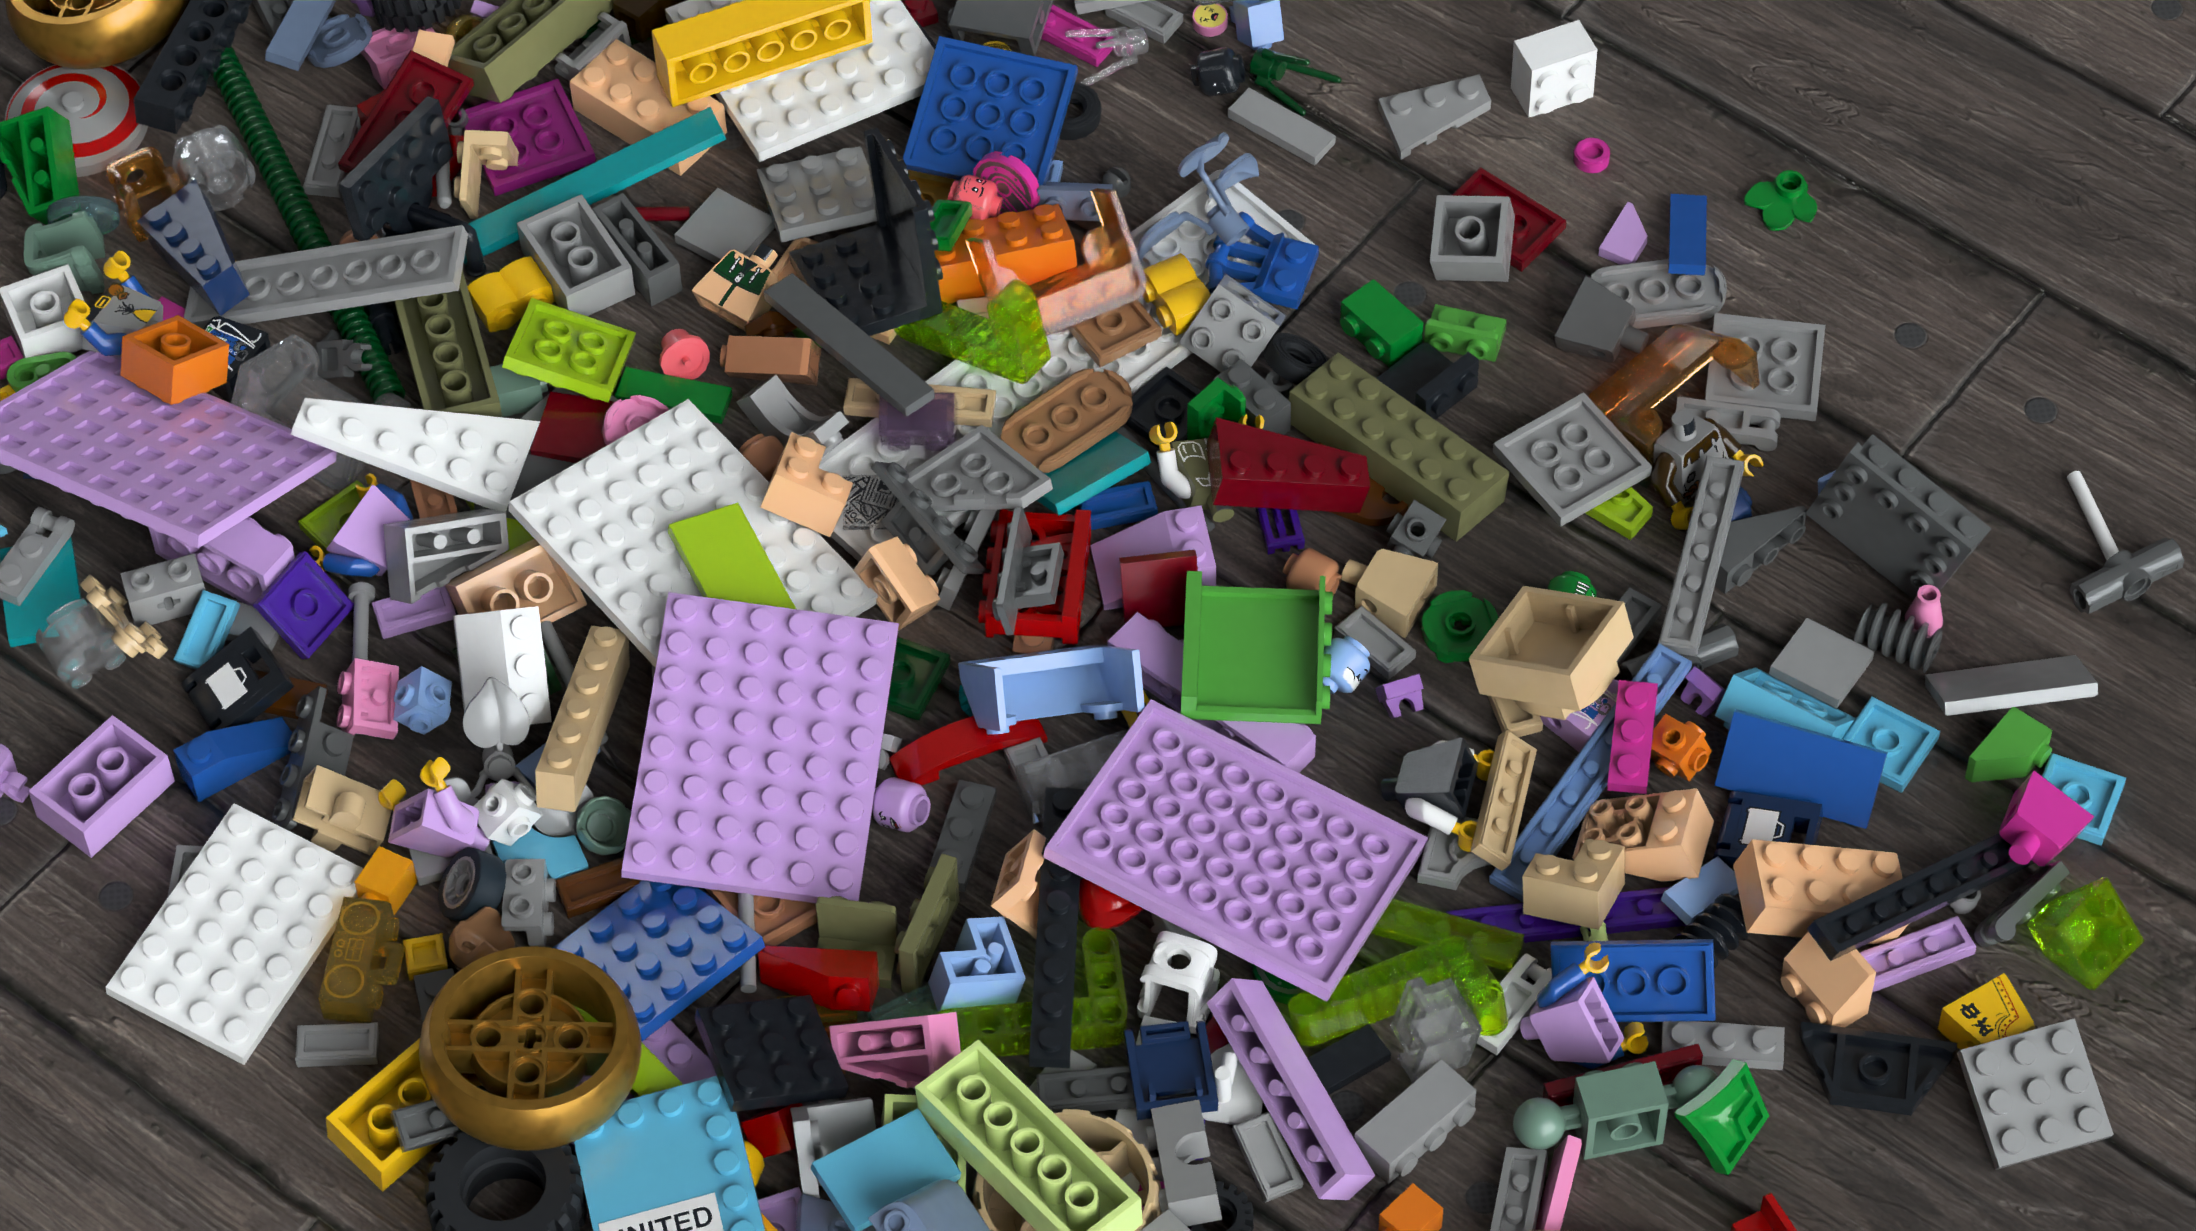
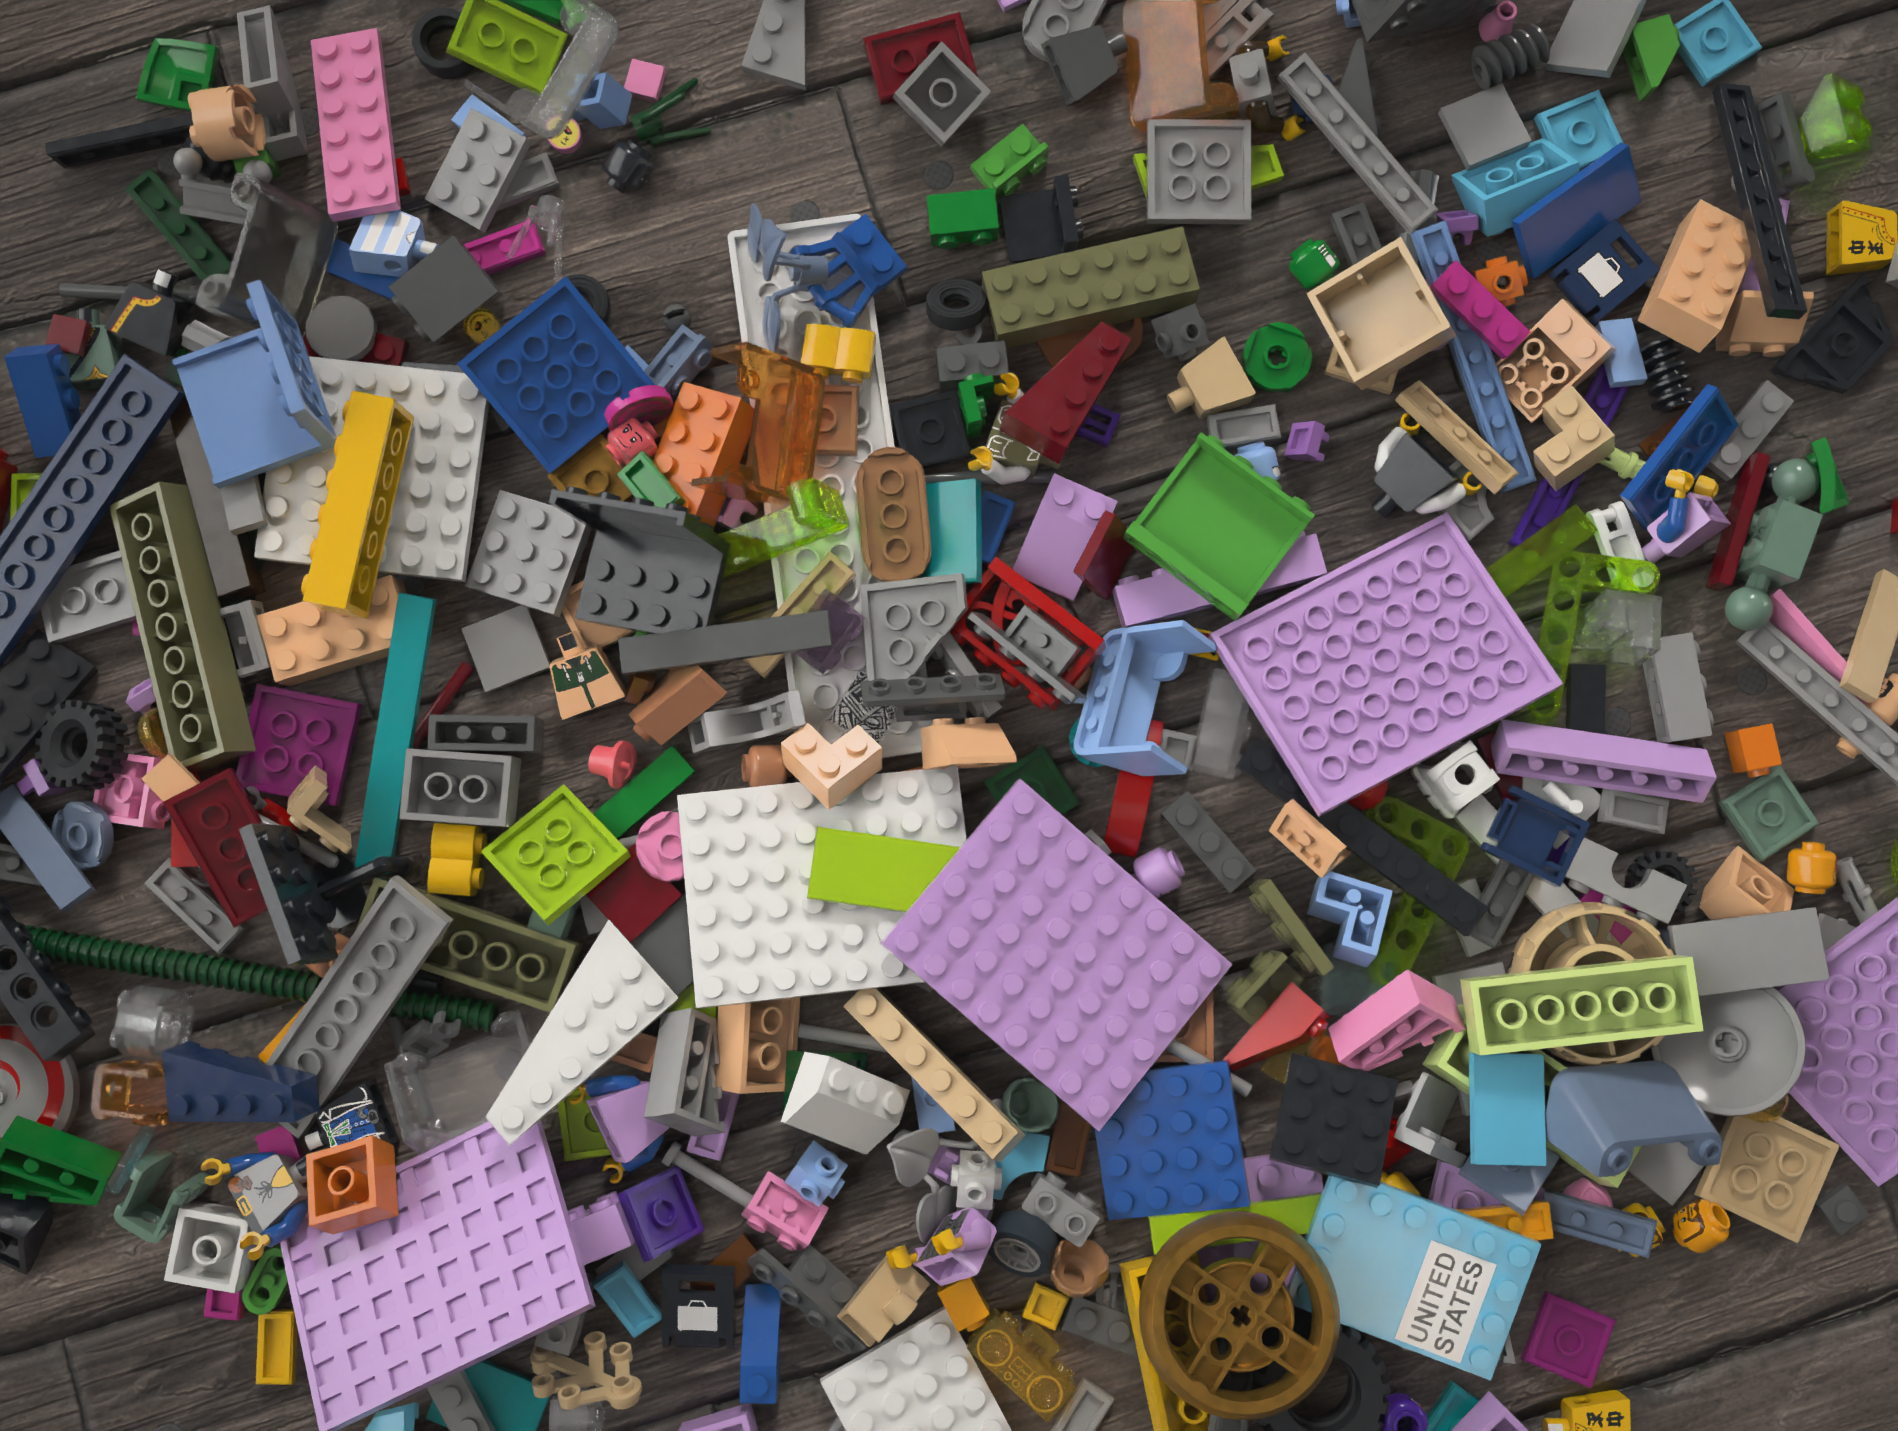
camera: 55 degrees left, 30 degrees up
(1232, 326) = (901, 330): light grey bracket -> none
(1281, 126) = (712, 156): light grey tile -> none
(1305, 570) = (1163, 433): nougat head -> none
(1307, 43) = (645, 80): none -> bright pink tile
(2041, 821) = (1742, 81): dark pink torso -> none

